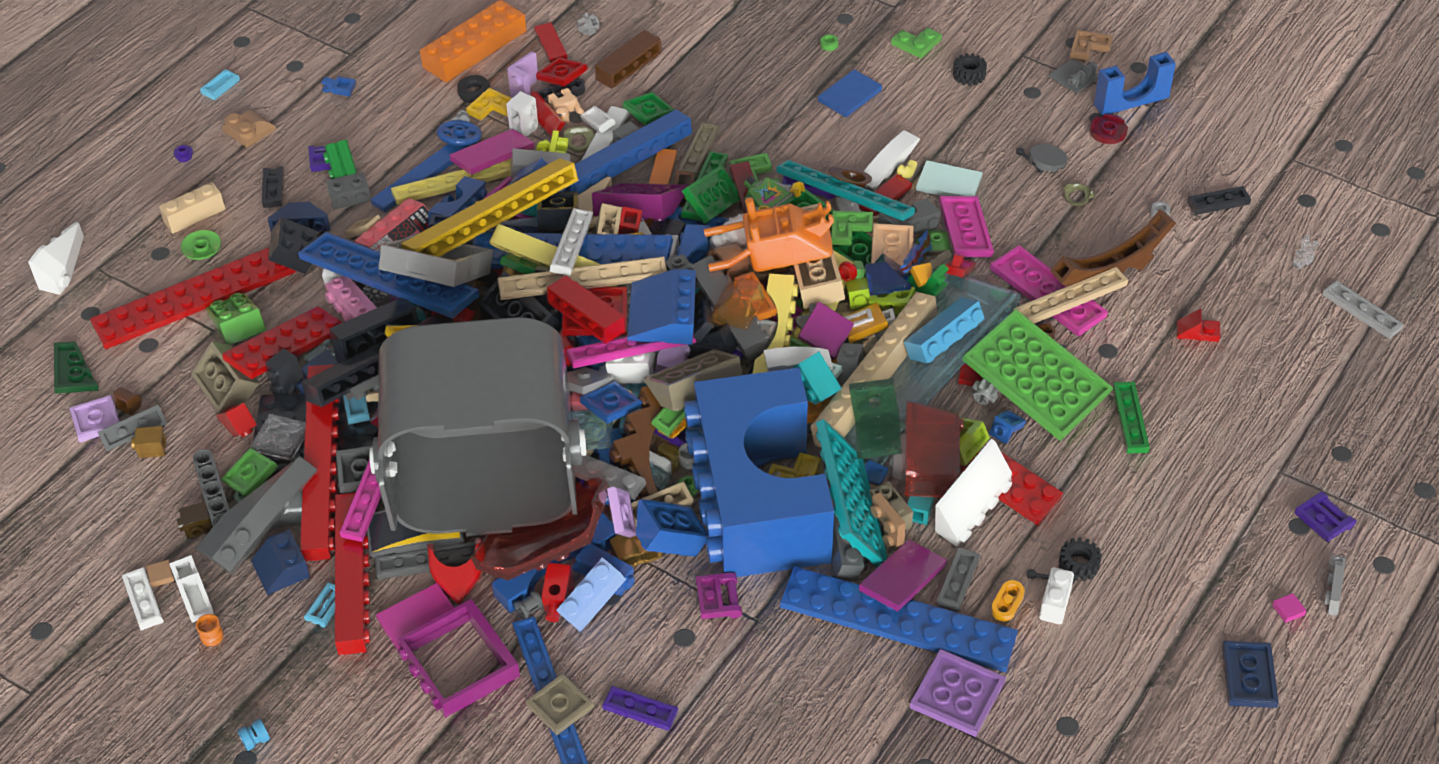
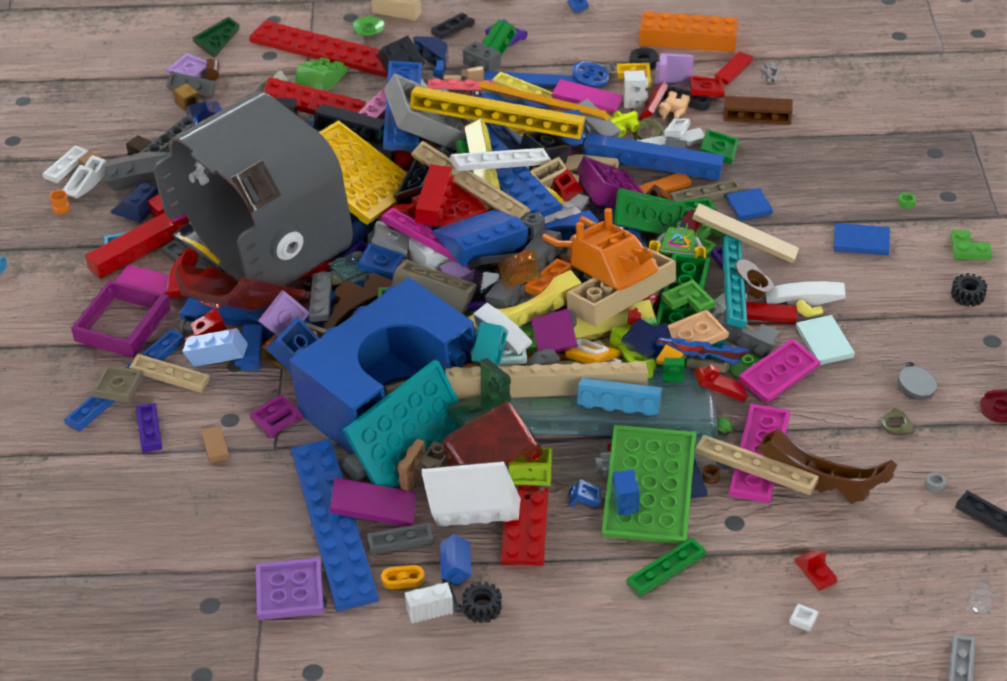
camera: 55 degrees right, 5 degrees down
(191, 438) = (203, 110): none -> clear blue slope
(335, 228) = (438, 71): none -> blue plate
(369, 207) = (475, 74): none -> tan slope
(487, 177) = (543, 100): none -> light orange tile
(546, 395) = (261, 183): none -> dark brown plate
(580, 653) = (170, 373): none -> tan tile
(712, 663) = (215, 444): none -> medium nougat tile
(740, 132) = (749, 204): none -> blue tile
(787, 152) = (745, 233): none -> tan tile
(1021, 551) = (455, 559): none -> blue brick
(1053, 390) = (626, 492): none -> blue brick
(1243, 365) = (803, 617): none -> white tile

